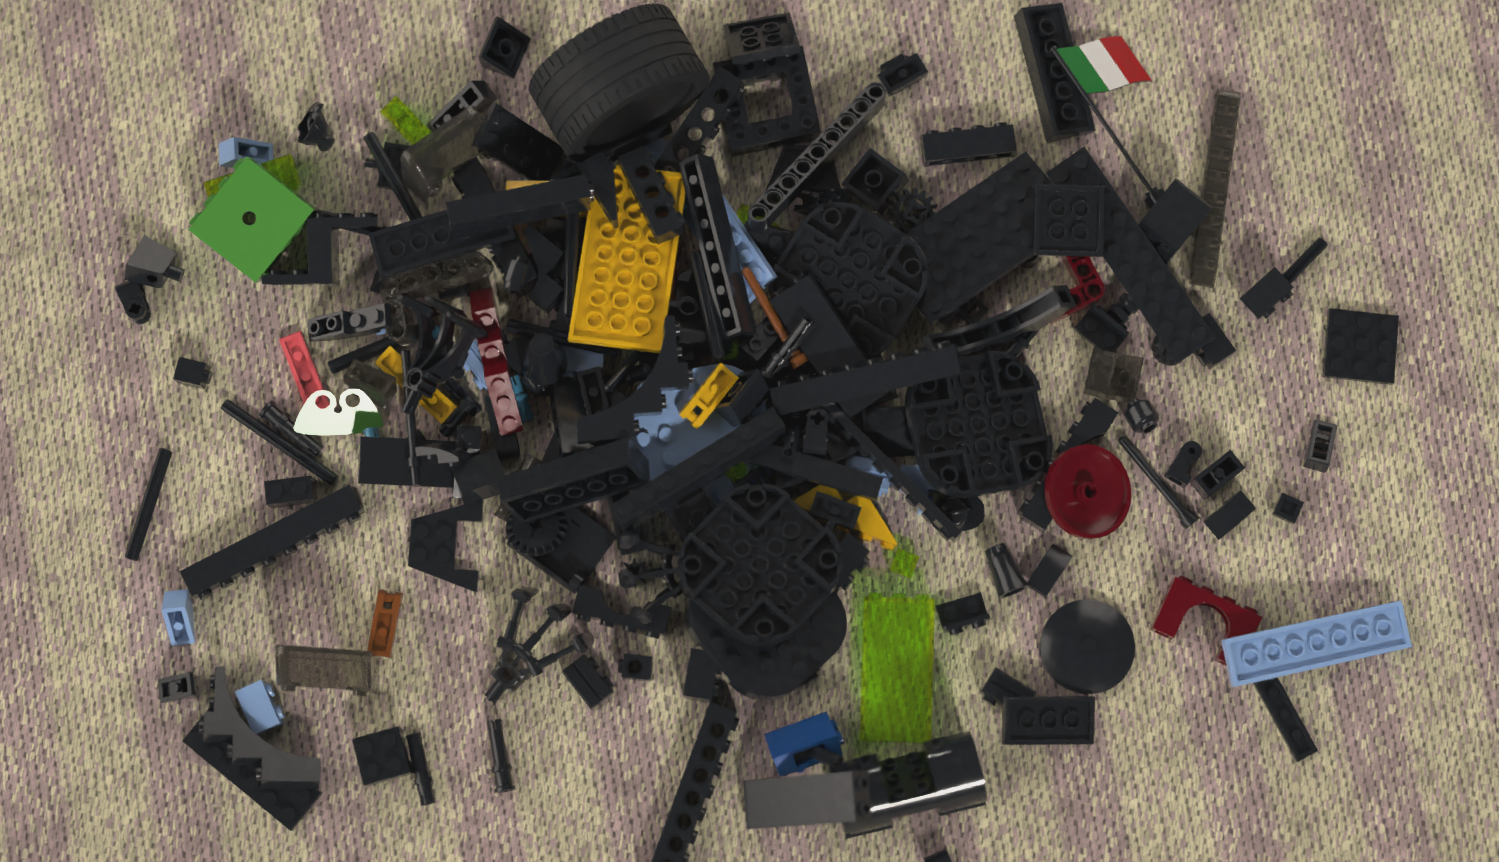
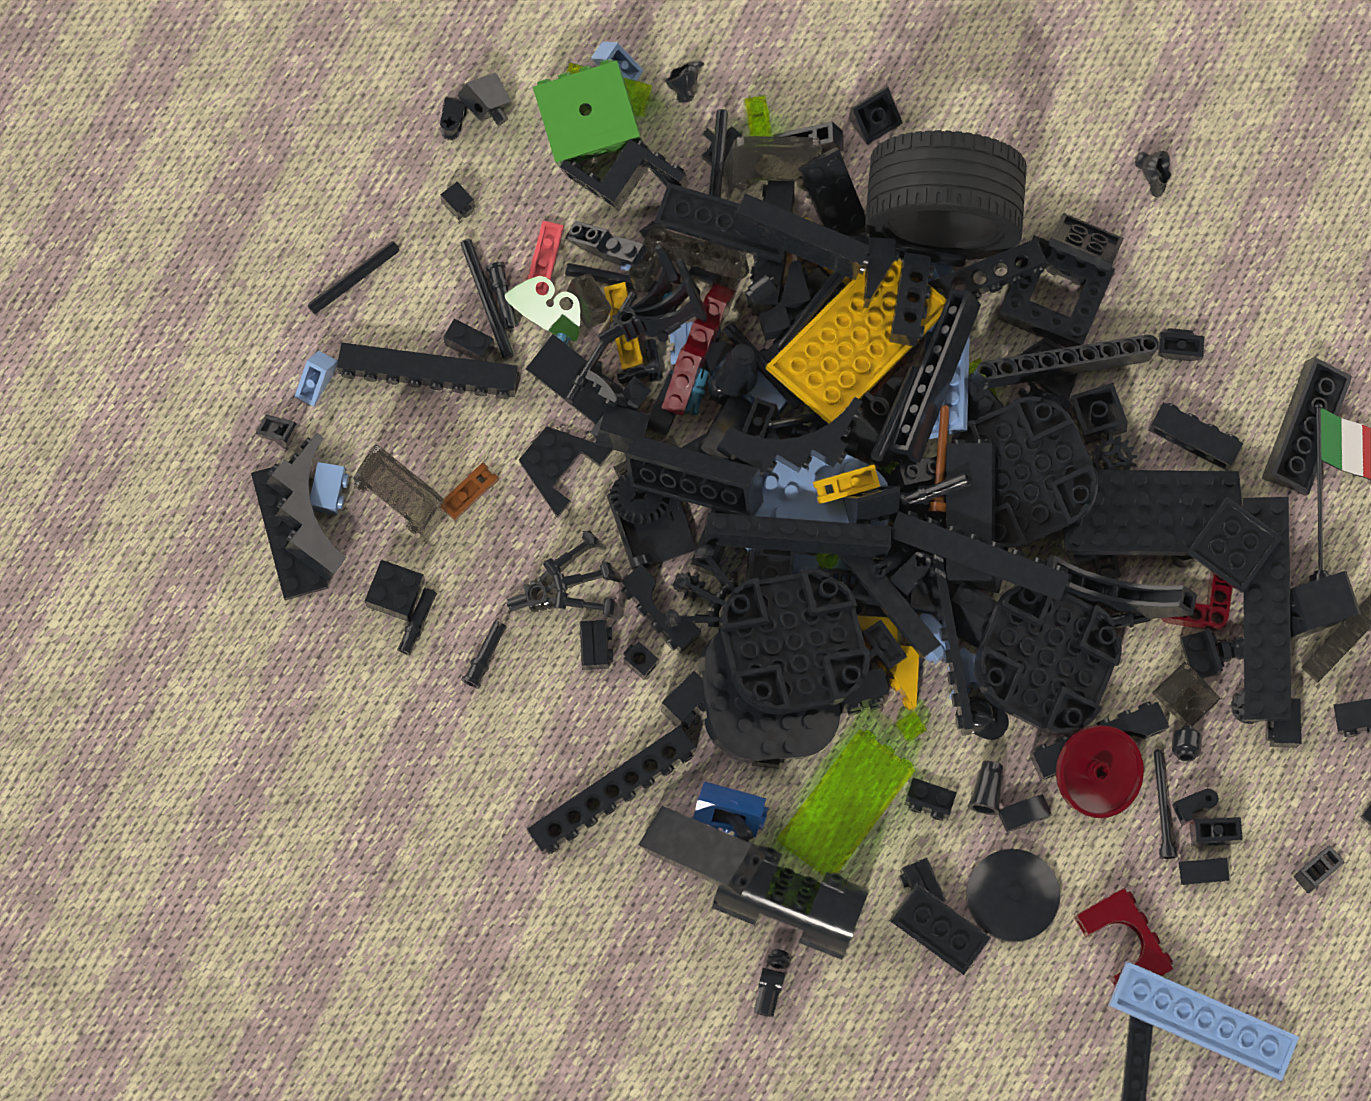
camera: 30 degrees right, 5 degrees down
(932, 841) = (779, 959): none -> black plate
(1287, 508) = (1256, 899): black plate -> none

